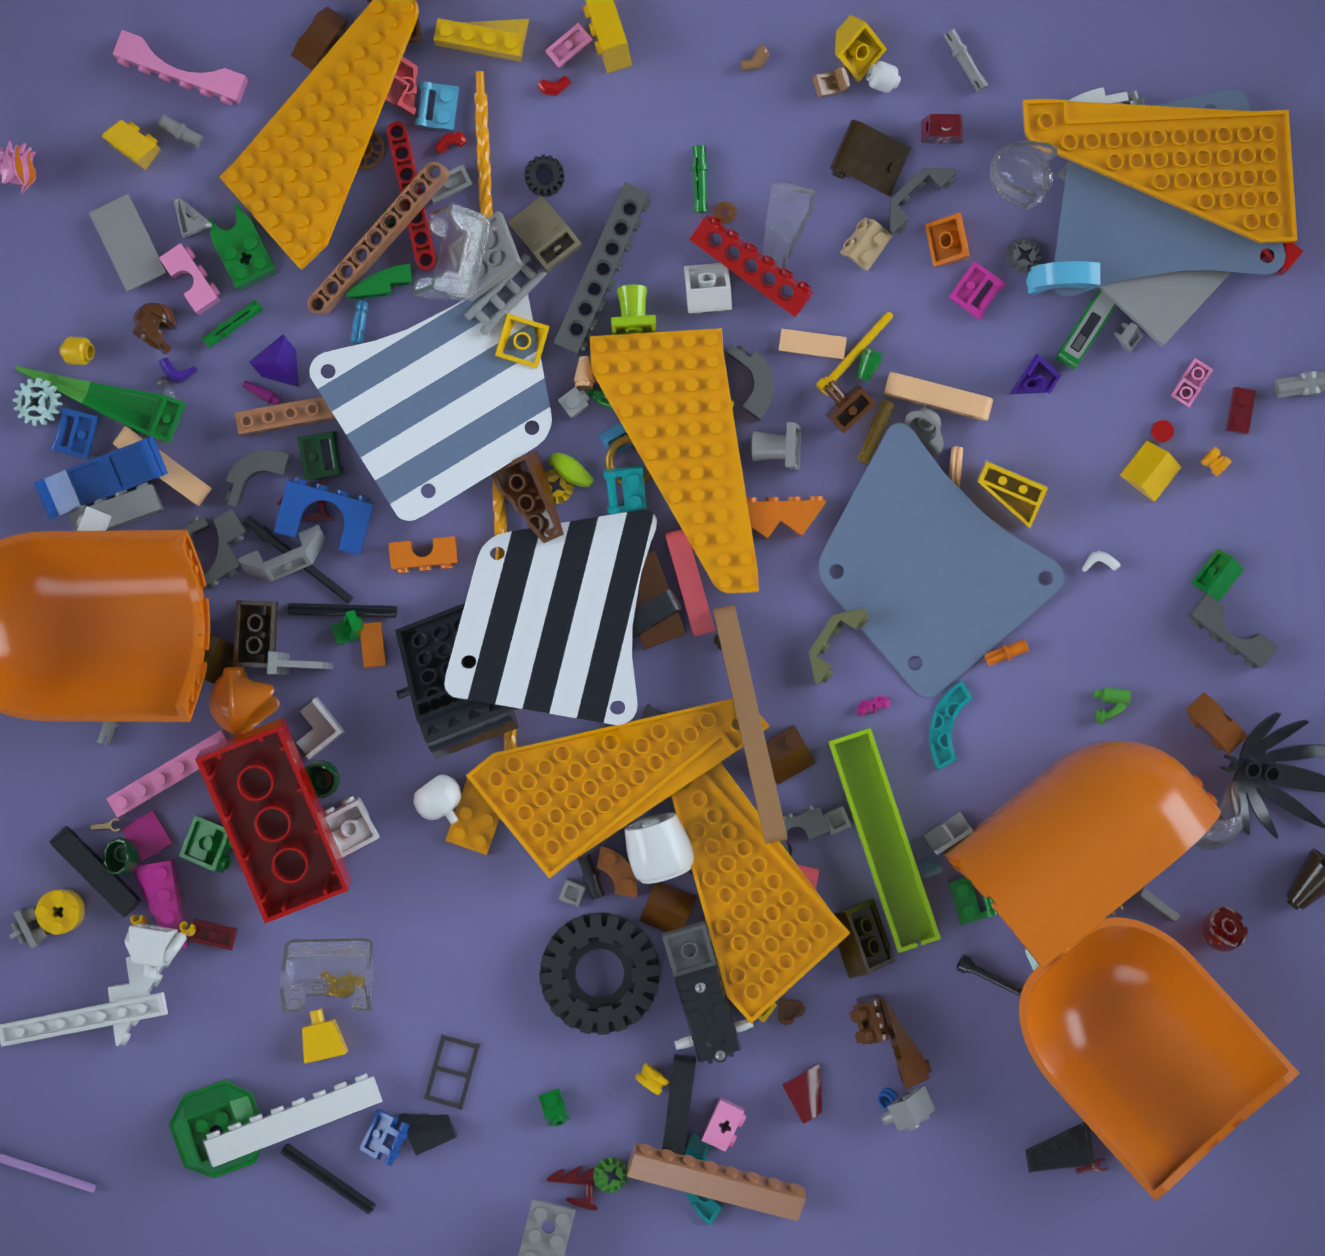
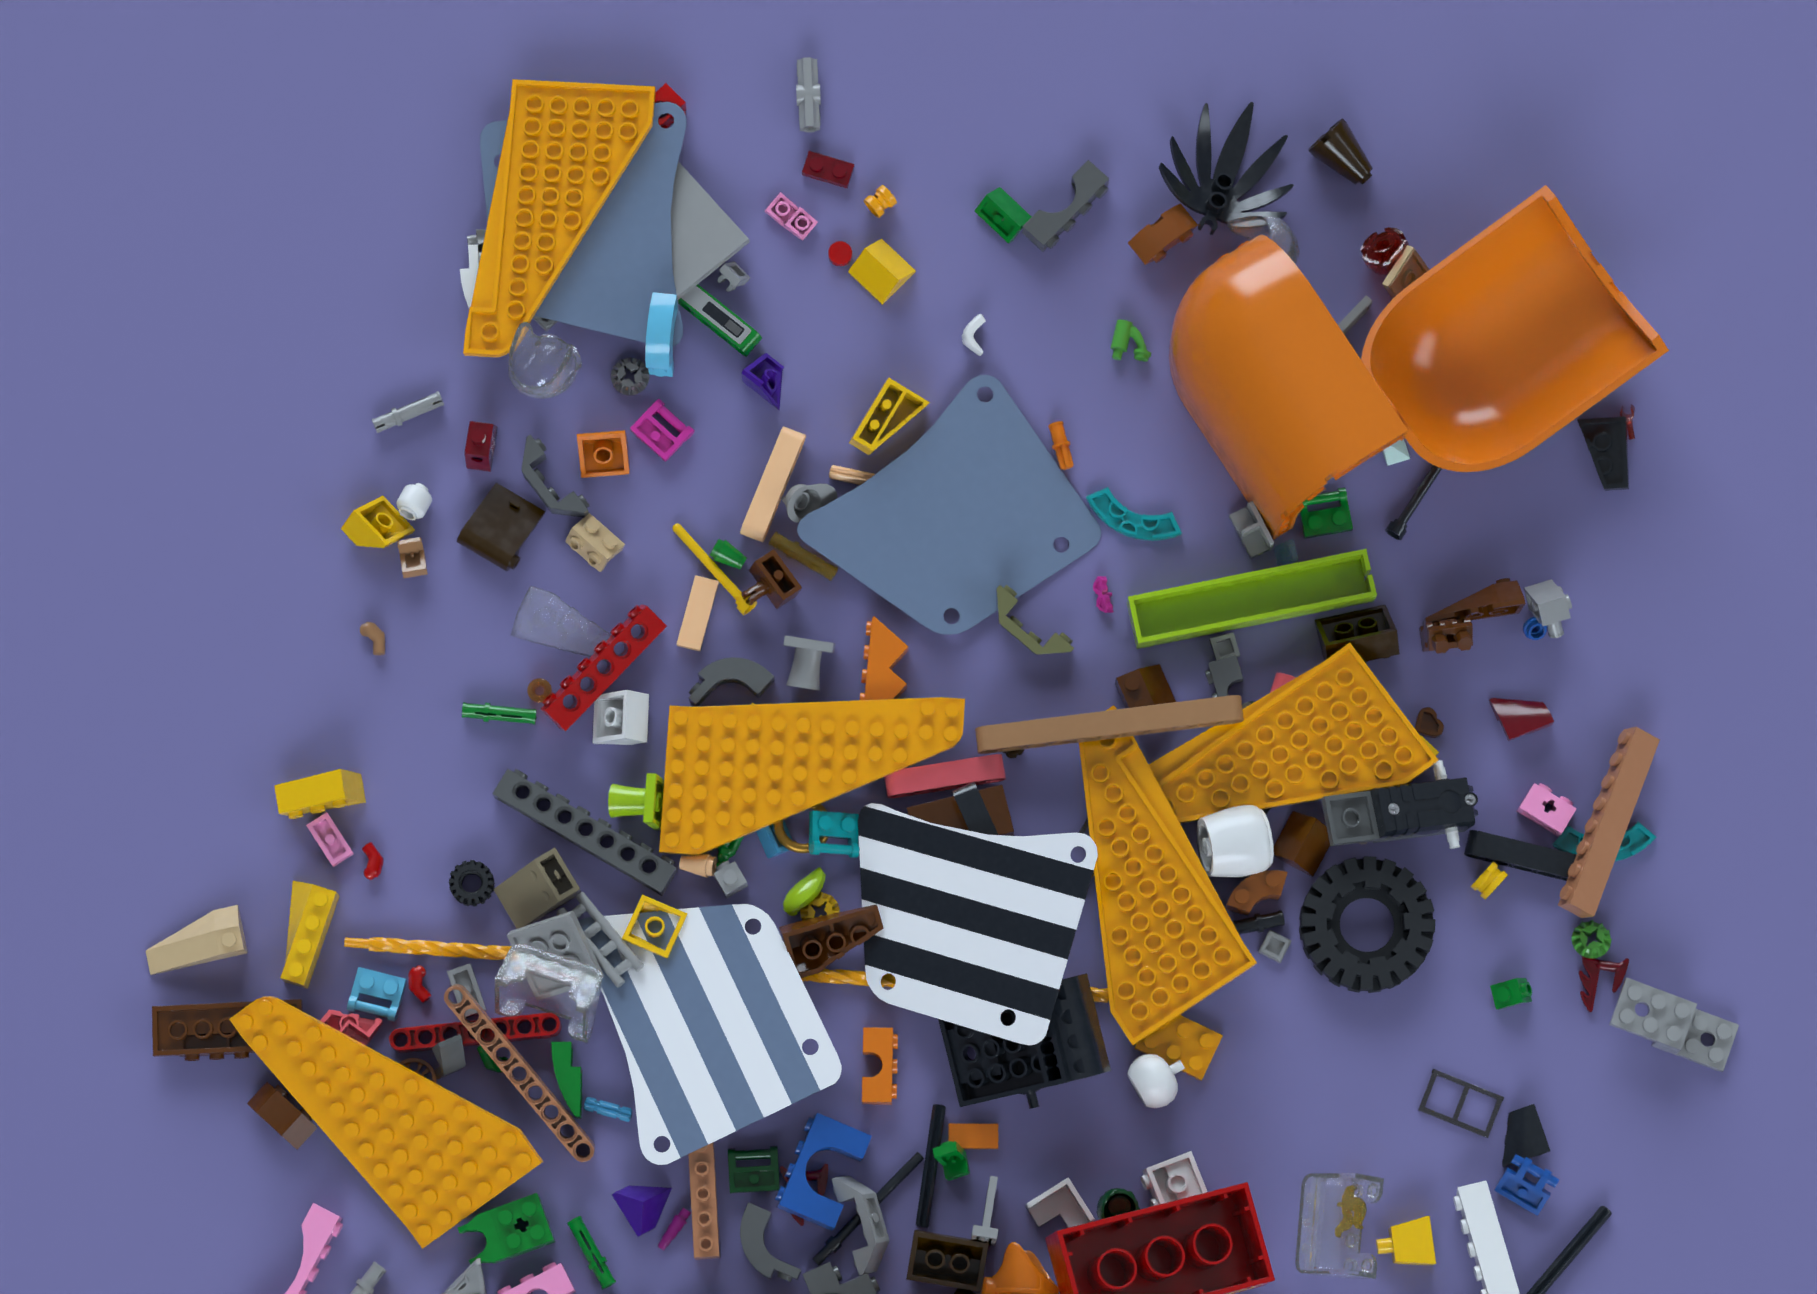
camera: 85 degrees left, 10 degrees down
(385, 175) = (449, 1056): none -> dark grey slope
(1205, 950) = (1404, 272): none -> tan tile

